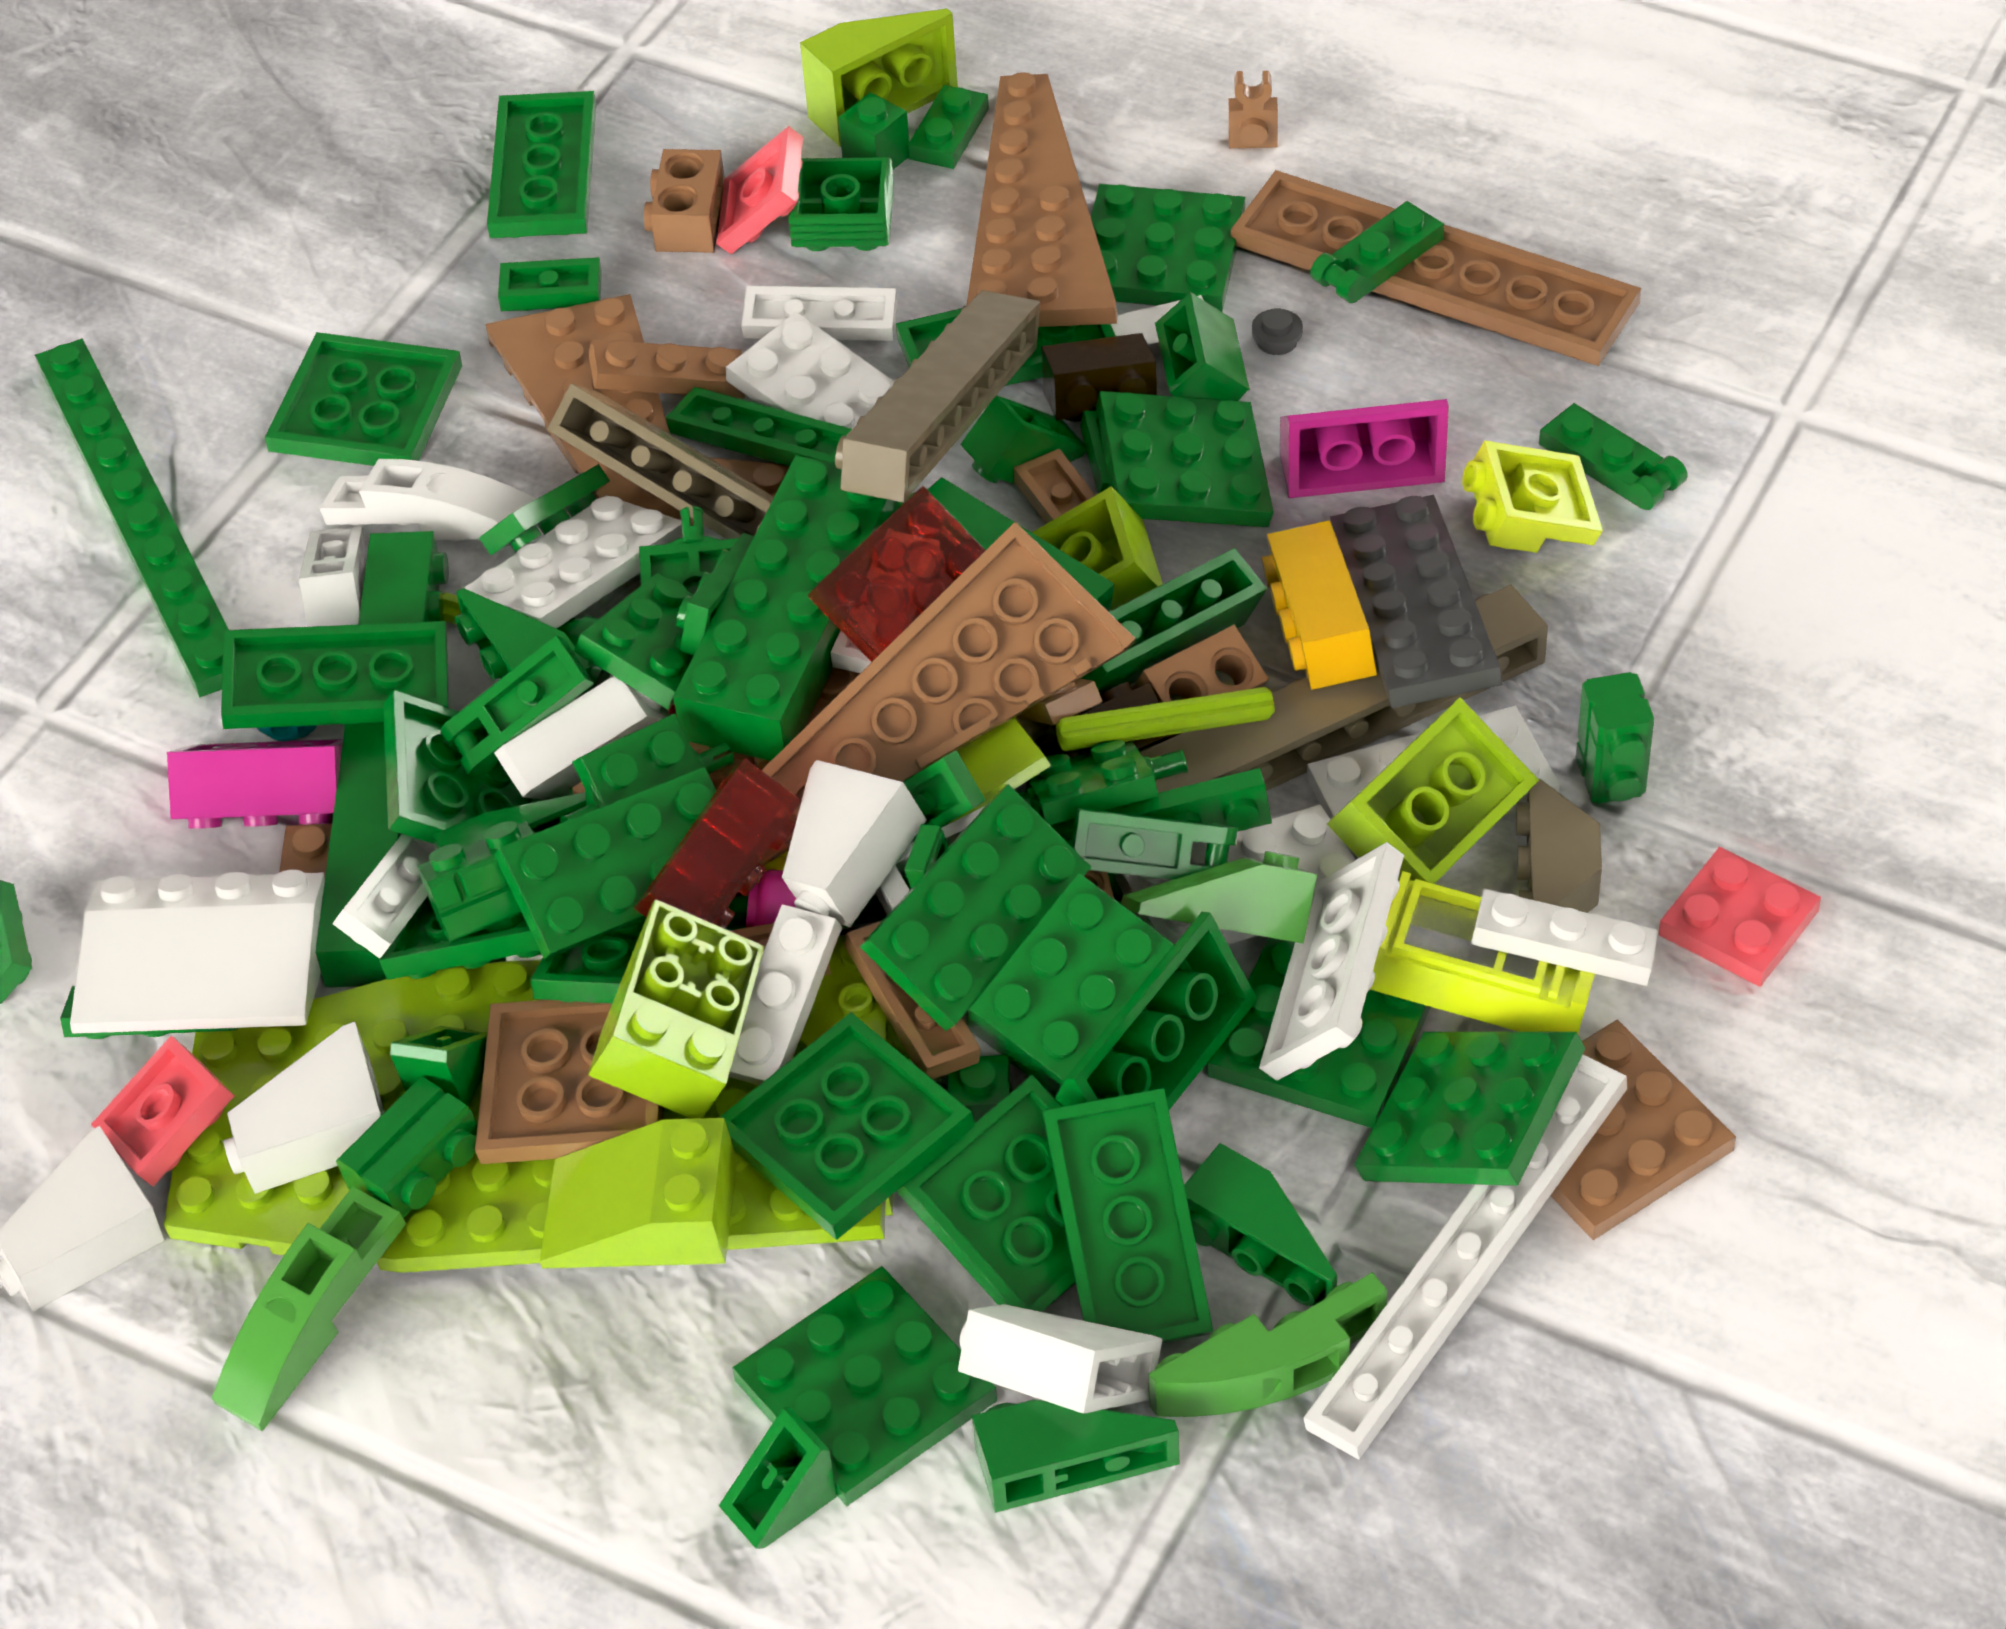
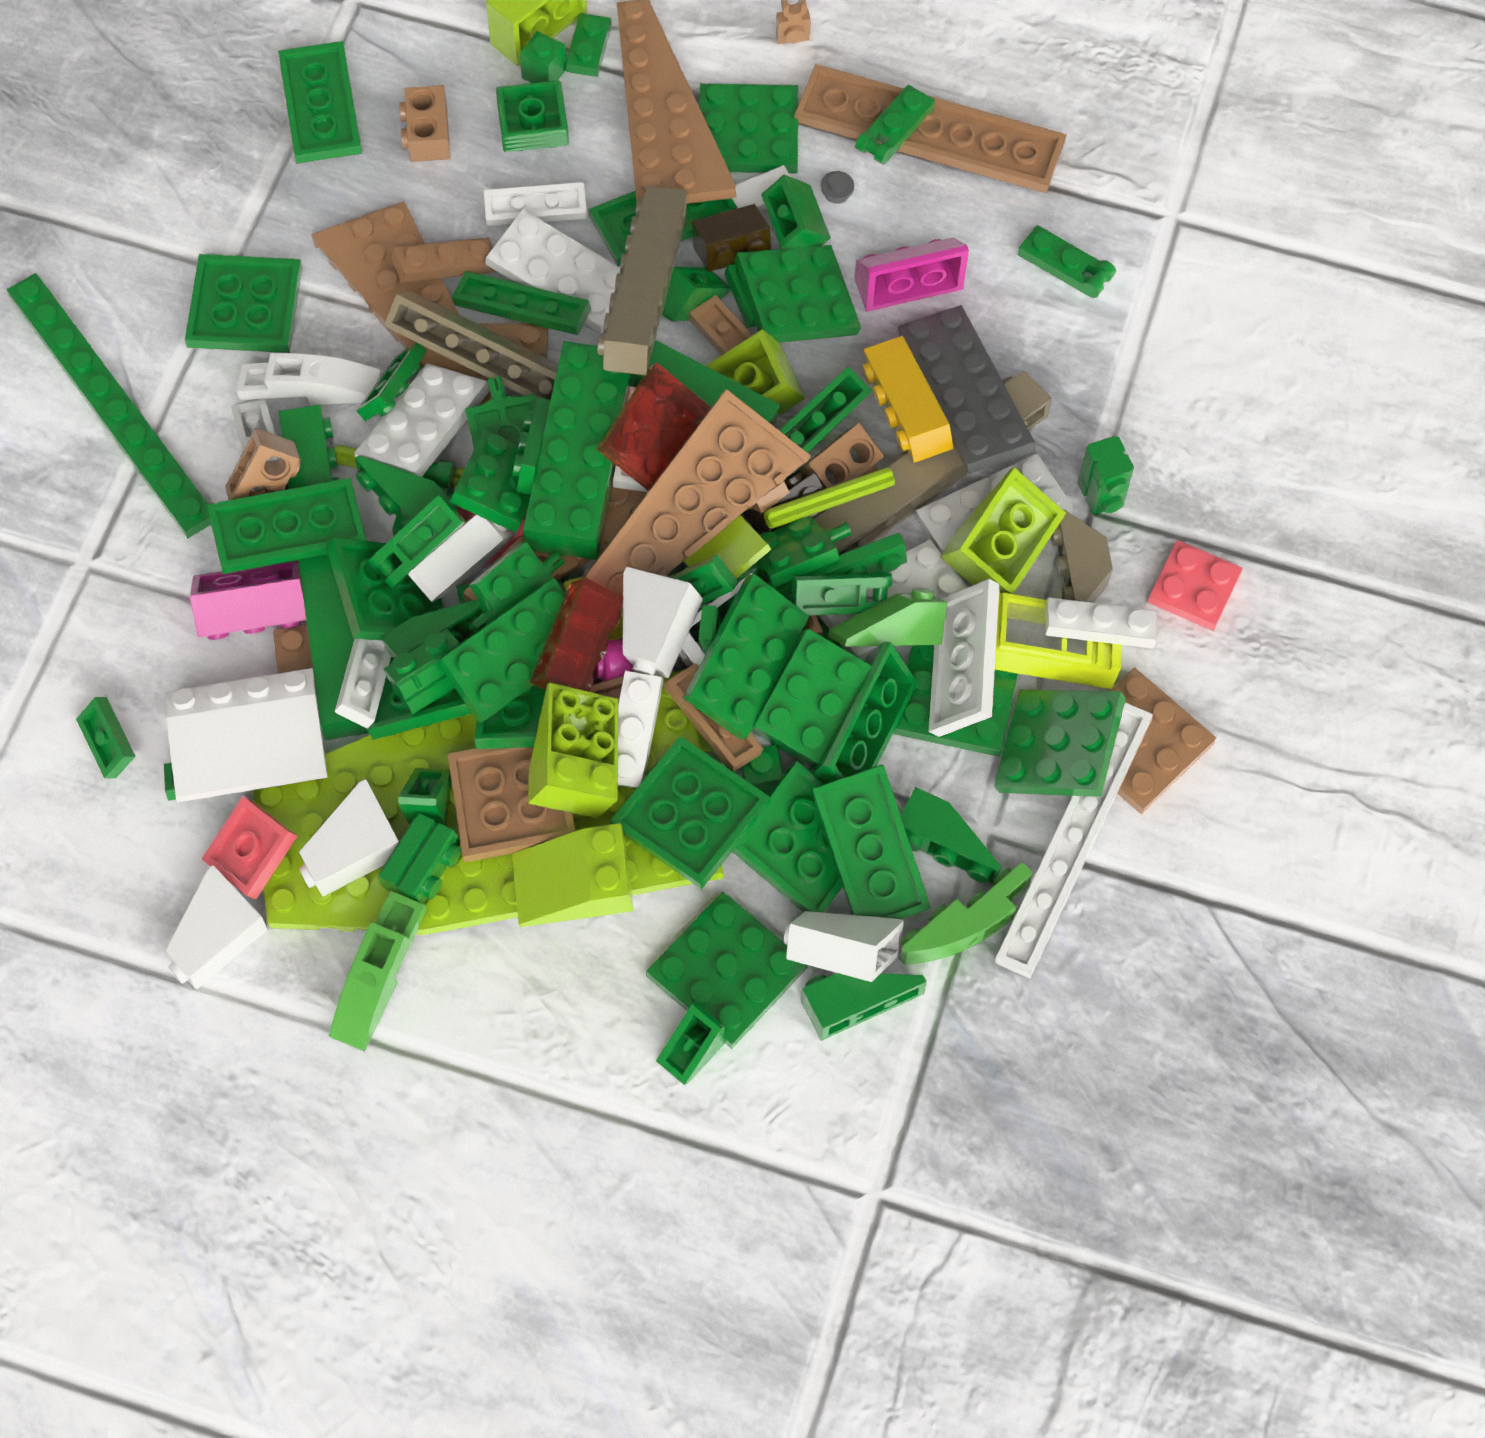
camera: 15 degrees left, 15 degrees up
(311, 599) = (255, 471): none -> medium nougat brick
(549, 284) = (347, 198): green plate -> none
(760, 191) = (476, 113): coral plate -> none
(1530, 497) = (1022, 300): neon yellow plate -> none

